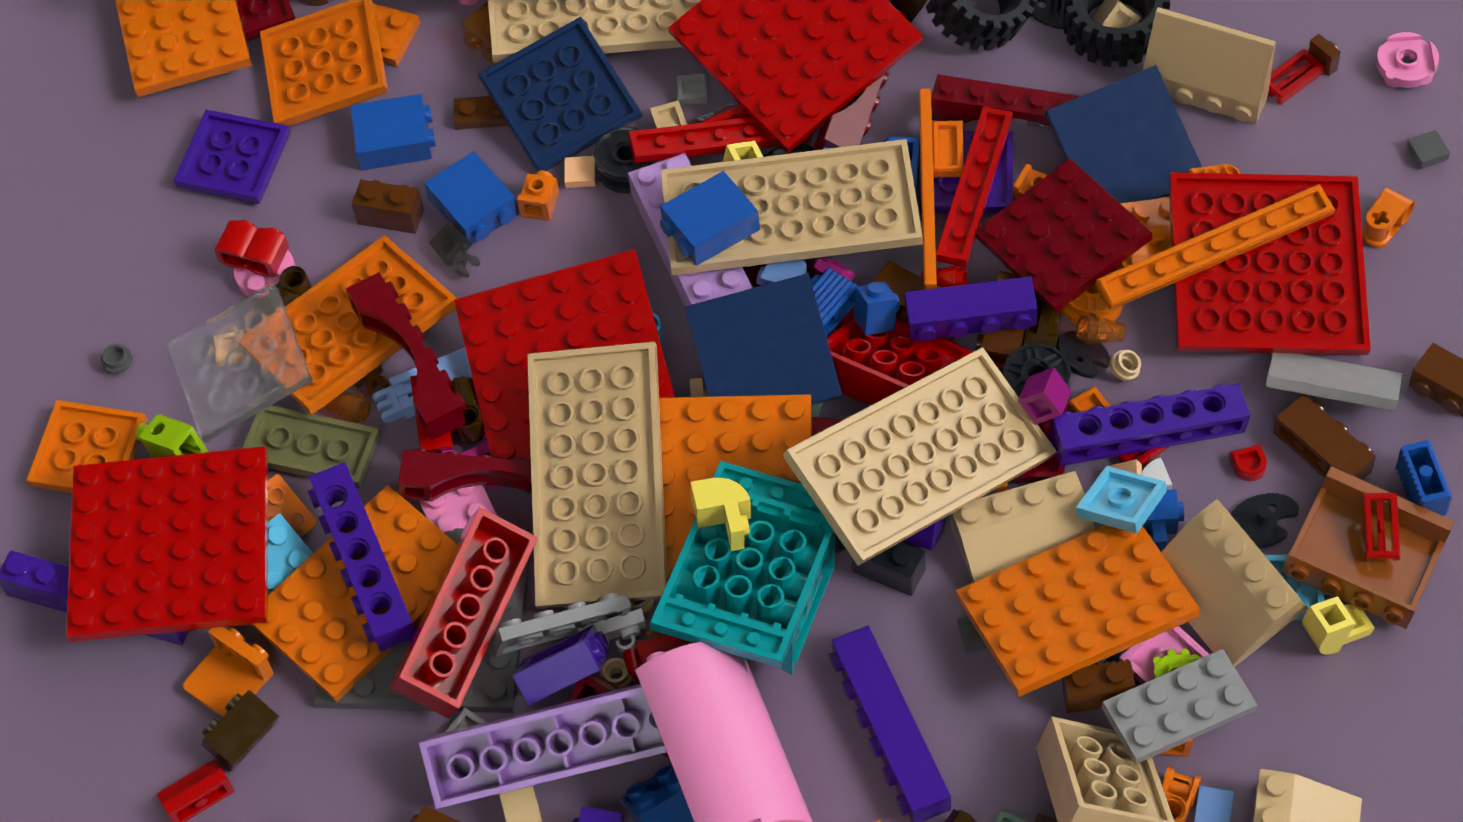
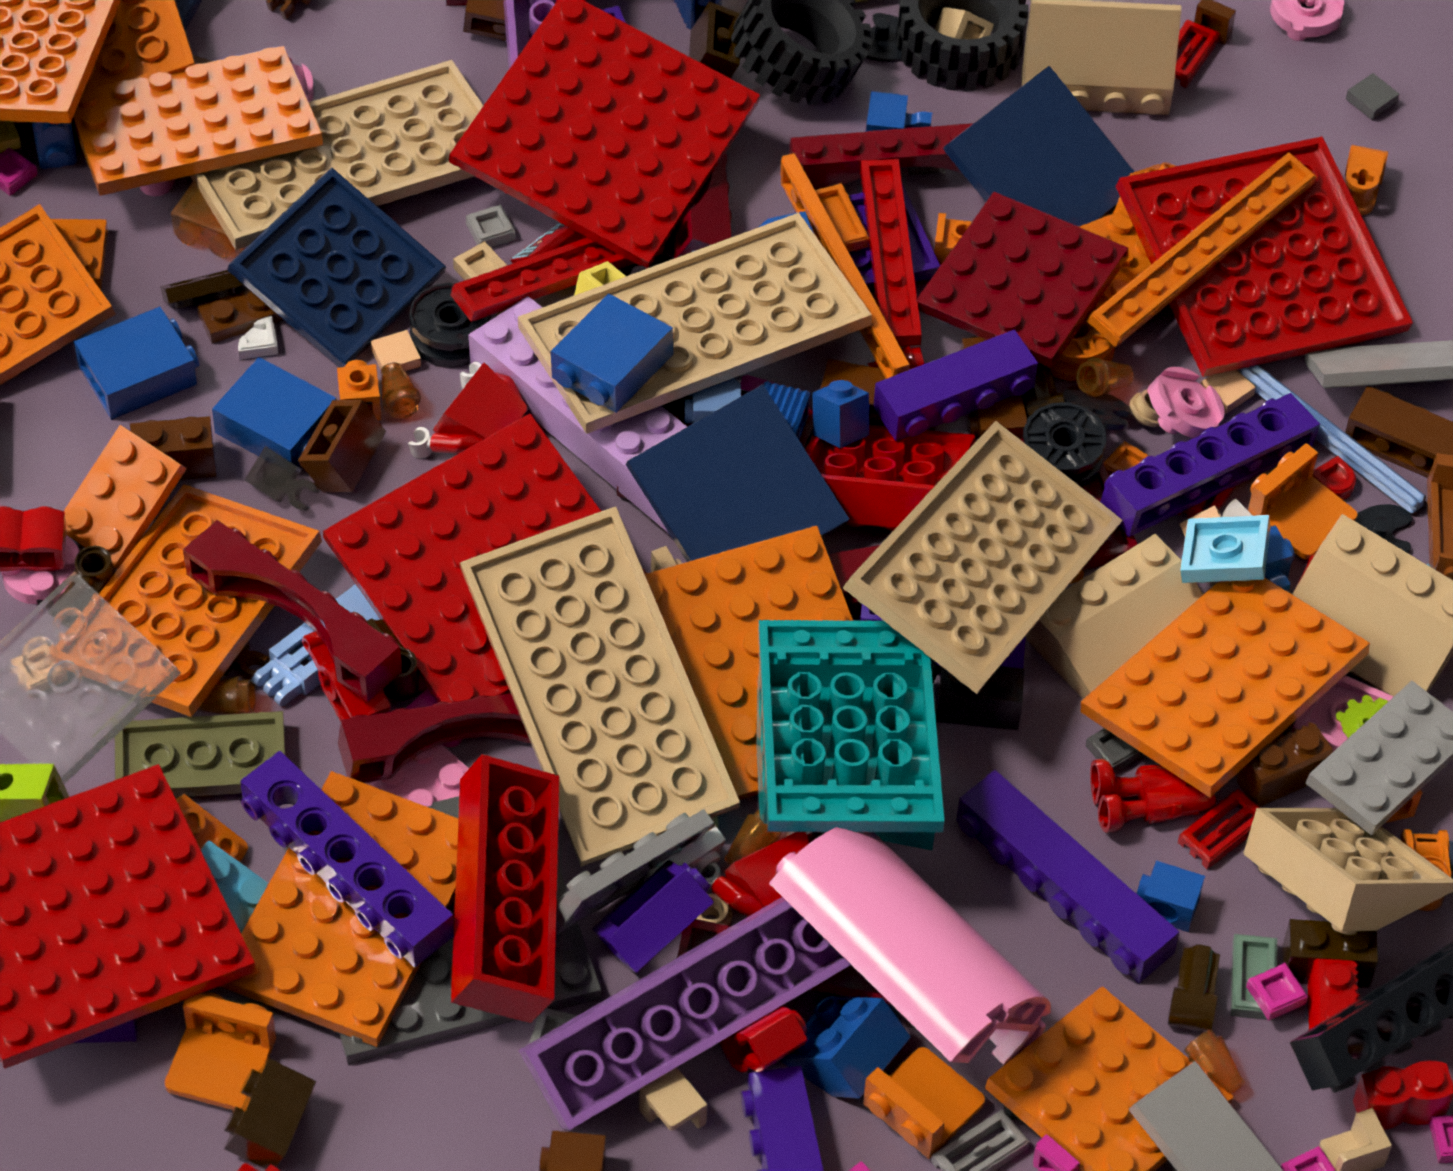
camera: 30 degrees left, 5 degrees down
(333, 232) = (121, 495): none -> orange plate
(450, 86) = (186, 292): none -> dark brown plate
(488, 136) = (259, 340): none -> white tile
(505, 235) = (342, 446): none -> reddish brown brick
(567, 202) = (399, 393): none -> clear orange cone
(605, 785) = (765, 1040): none -> red brick
(614, 232) = (481, 409): none -> red torso
(722, 502) = (793, 662): light yellow brick -> none
(963, 764) = (1172, 893): none -> blue brick
(991, 682) = (1160, 791): none -> red piece
(1026, 710) = (1200, 849): none -> red tile
(1029, 72) = (889, 112): none -> blue brick
(1044, 396) = (1089, 457): magenta panel -> none
(1139, 374) = (1184, 402): none -> bright pink plate
(1197, 366) = (1231, 388): none -> light nougat tile
(1208, 473) = (1298, 502): none -> orange bracket
(1266, 432) = (1343, 445): none -> medium blue axle

